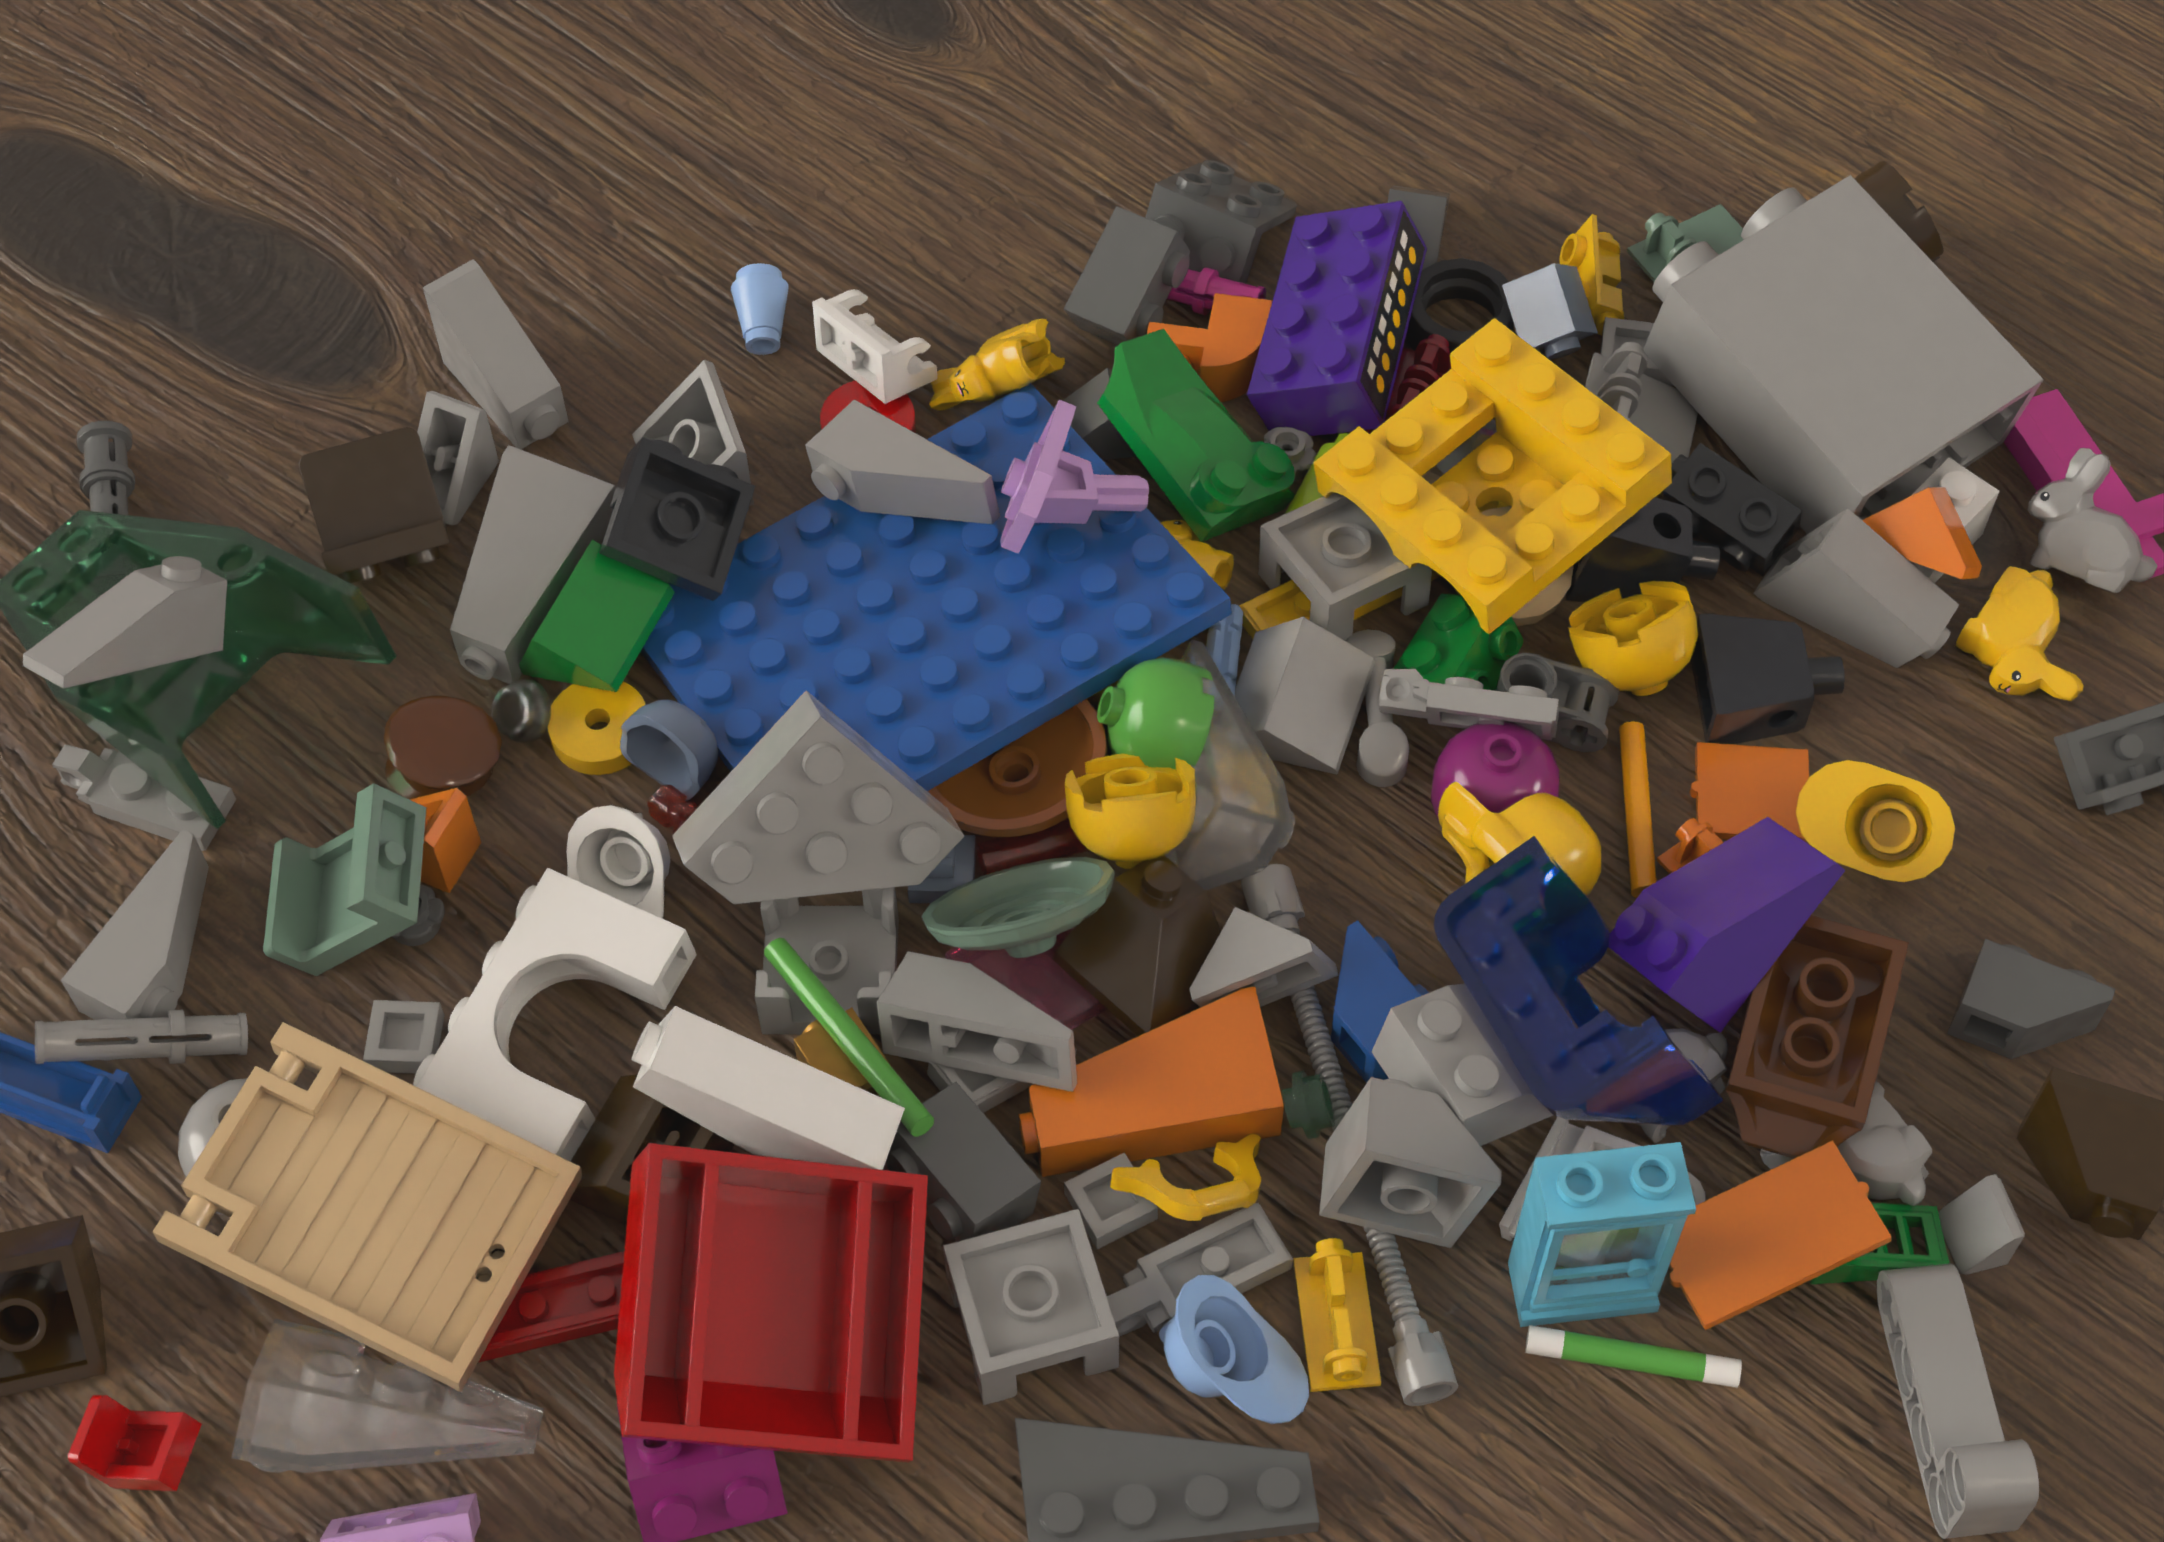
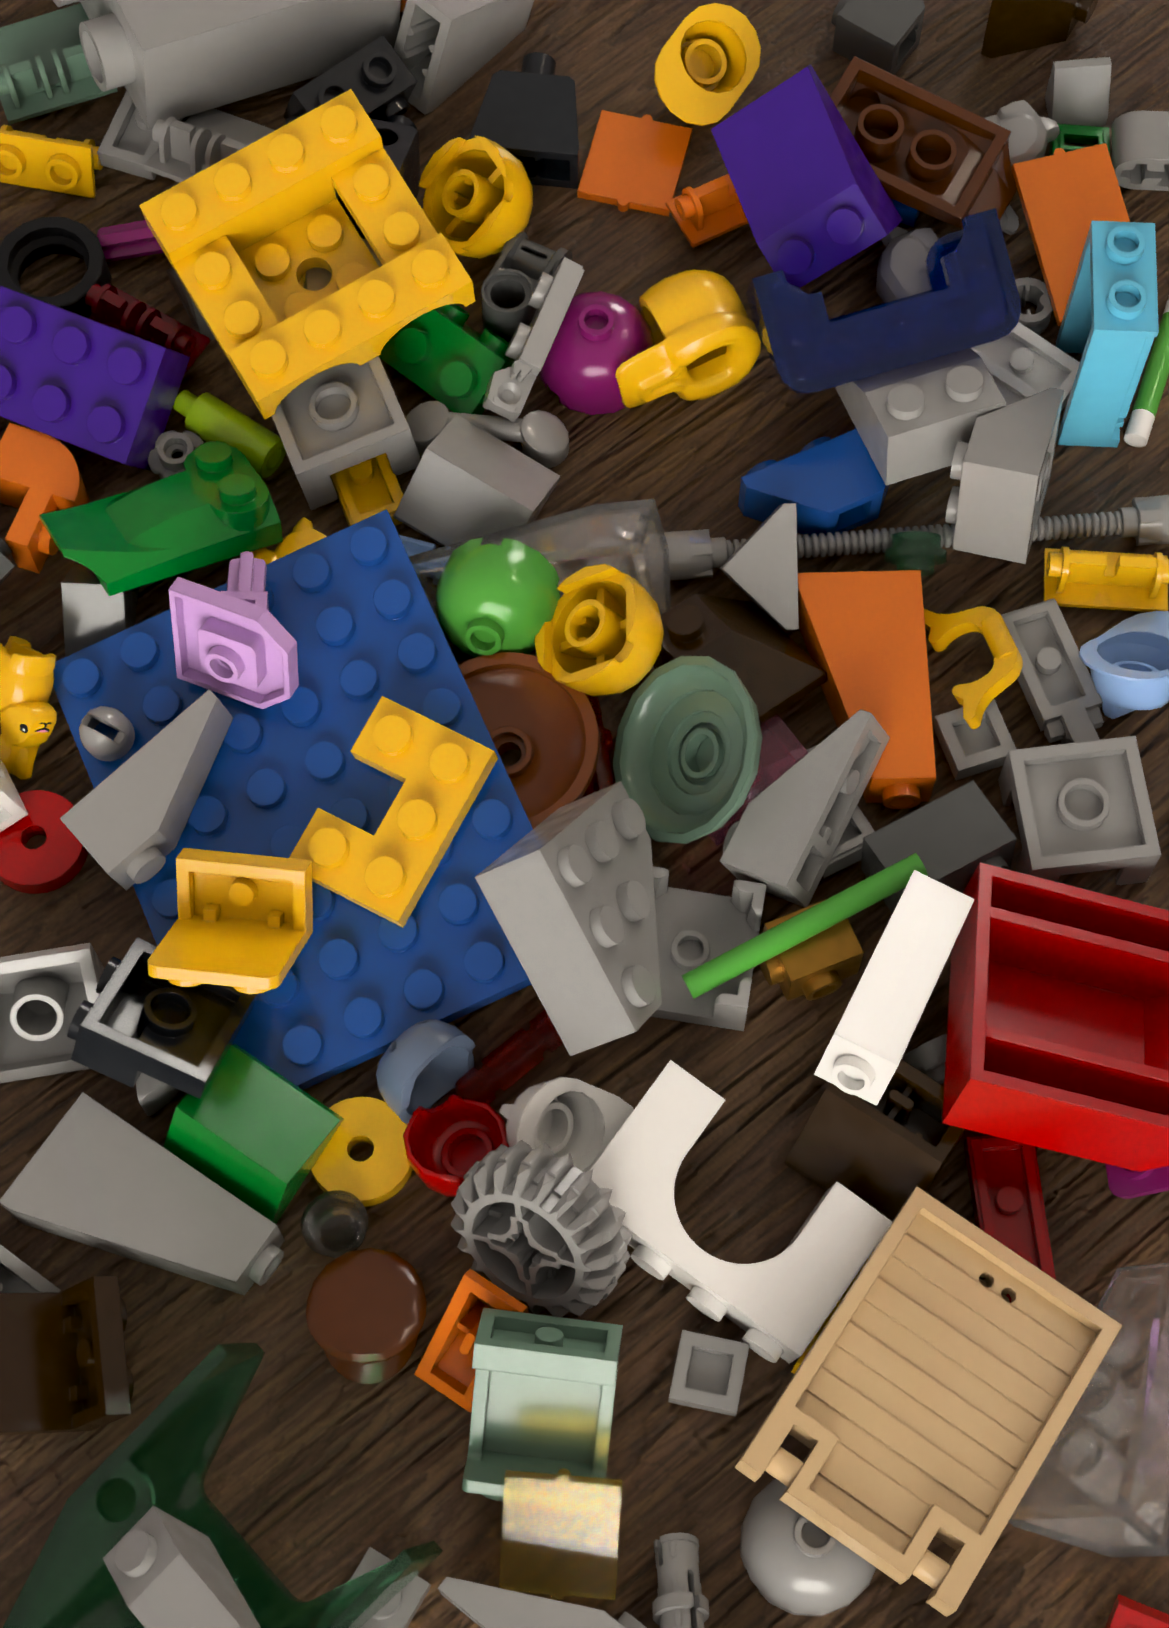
camera: 80 degrees left, 10 degrees up
(241, 928) = (560, 1534): none -> clear yellow piece
(512, 852) = (541, 1229): none -> light grey gear
(598, 775) = (450, 1139): none -> red hair
(766, 560) = (236, 921): none -> yellow bracket
(860, 670) = (440, 783): none -> yellow plate
(970, 430) = (99, 744): none -> light grey hinge
(1550, 310) = (87, 189): brick -> none
(1637, 807) = (636, 250): light orange bar -> none

